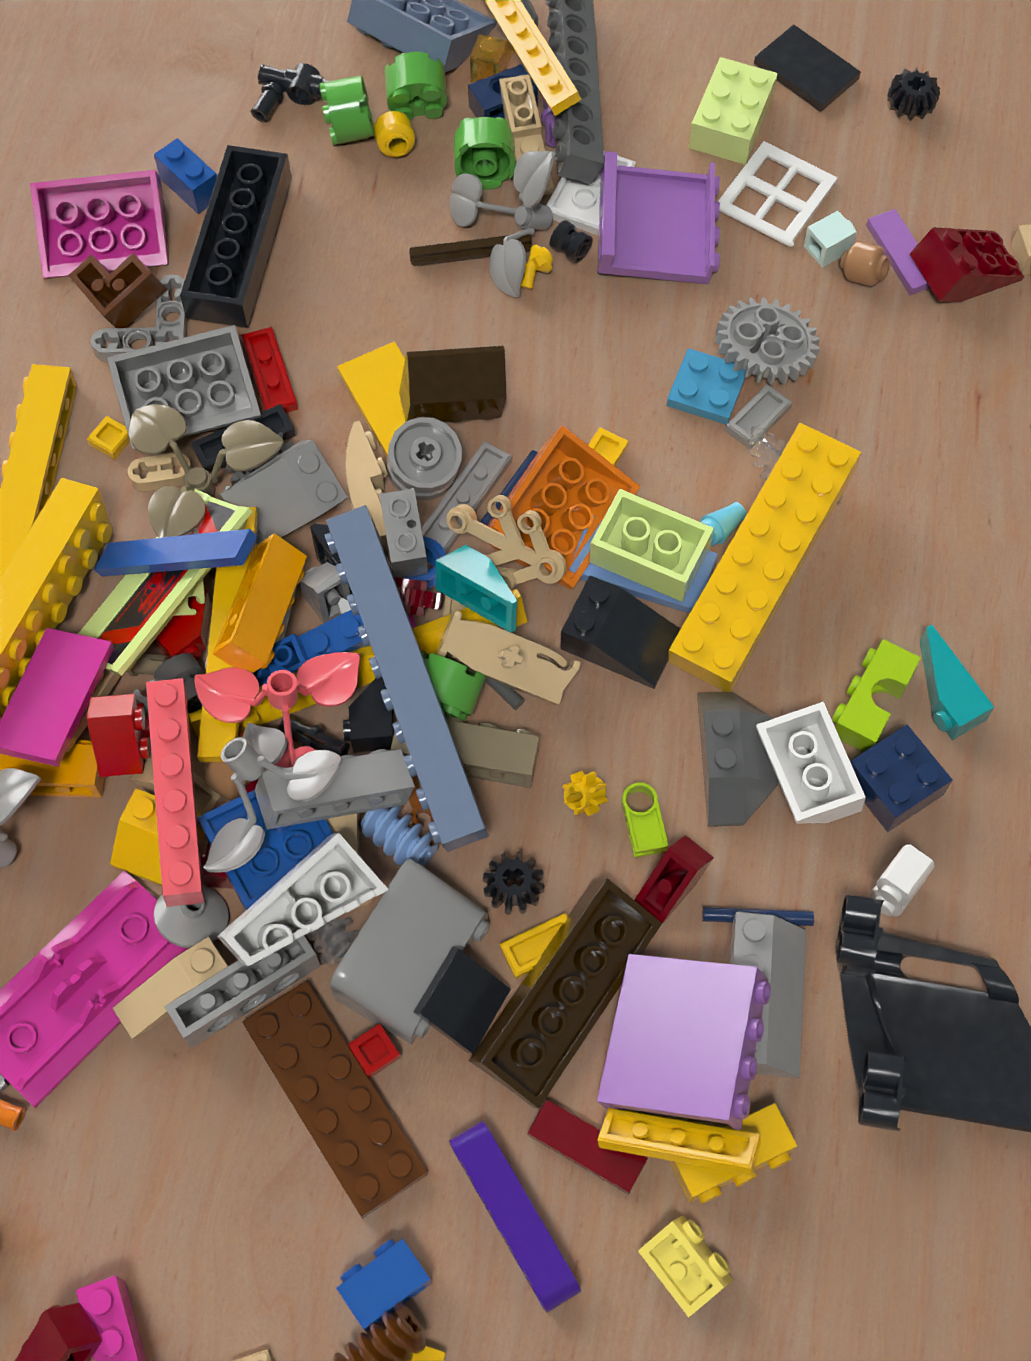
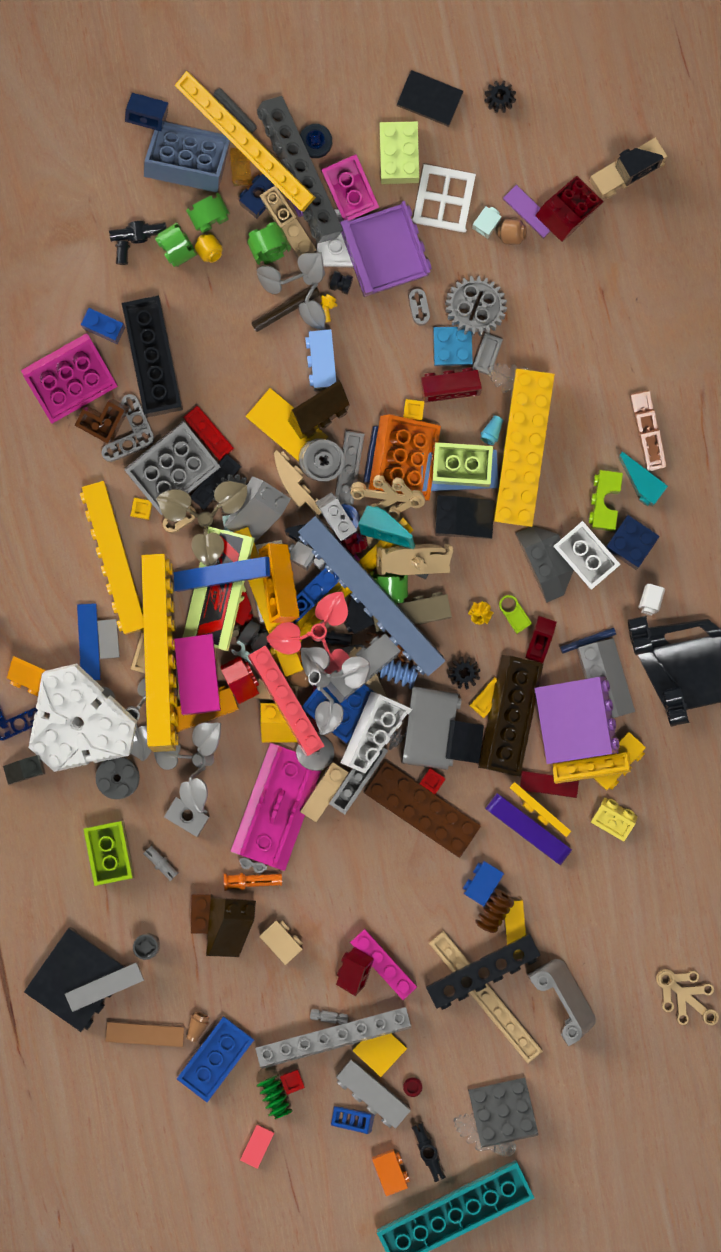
camera: 20 degrees left, 20 degrees up
(497, 317) = (321, 359): none -> light blue brick
(539, 1169) = (545, 816): none -> yellow wing
(618, 61) = (316, 134): none -> black wheel
(639, 121) = (349, 188): none -> dark pink slope
(679, 435) = (450, 385): none -> dark red slope
(682, 317) = (423, 306): none -> light grey beam
(987, 616) = (648, 430): none -> nougat slope

